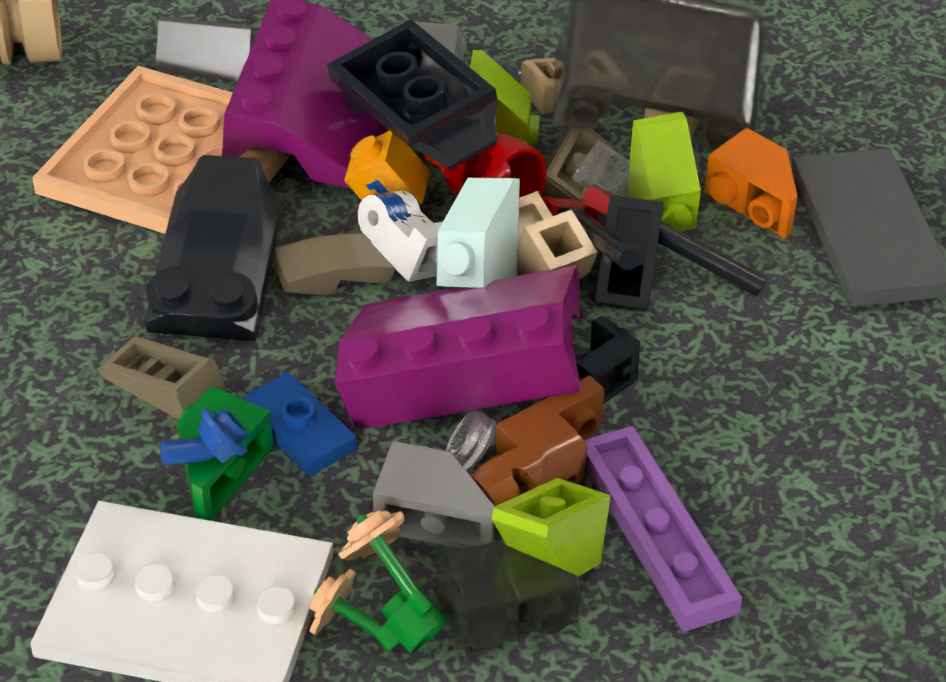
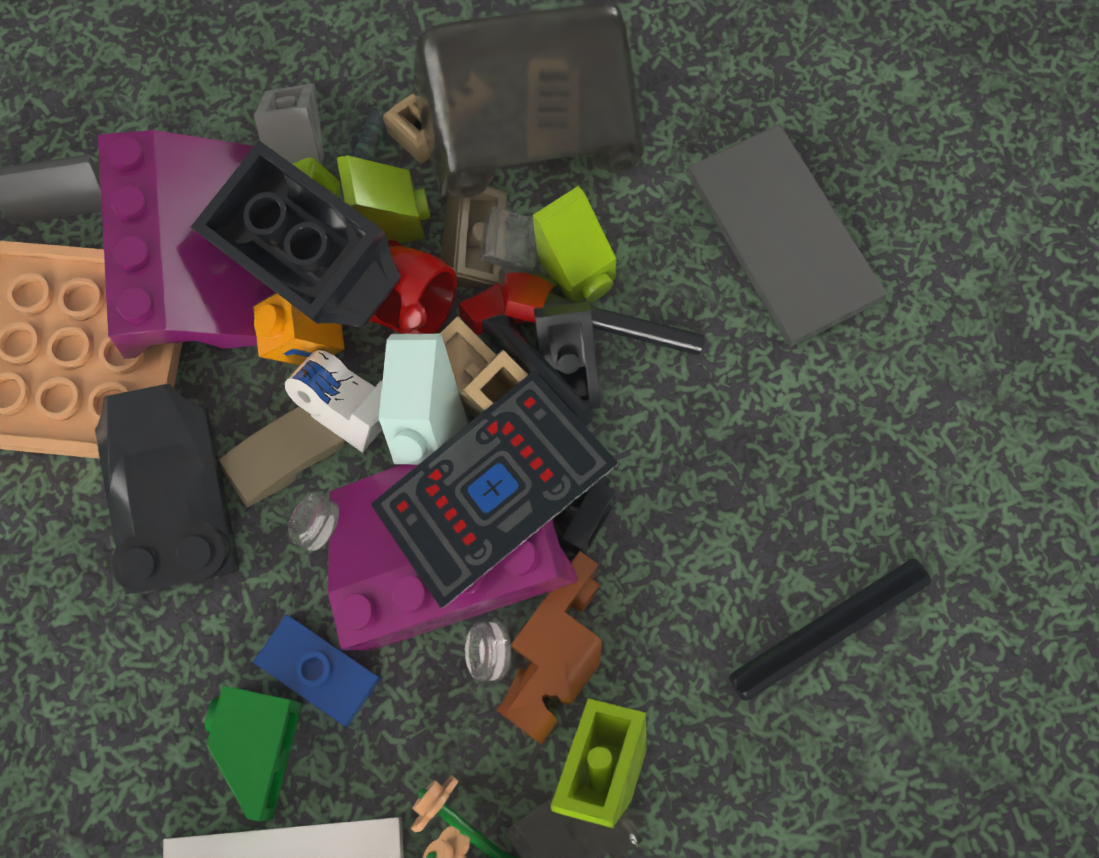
camera: 10 degrees left, 30 degrees up
(195, 374) = (200, 666): dark tan slope -> none
(220, 438) = (257, 769): blue plate -> none
(342, 312) = (313, 522): none -> clear tile
(435, 497) = (470, 735): light grey slope -> none
(524, 282) = (491, 487): none -> black sticker
(661, 530) = (689, 697): medium lavender plate -> none
(754, 180) = (662, 209): orange slope -> none
(820, 516) = (829, 629): none -> black axle

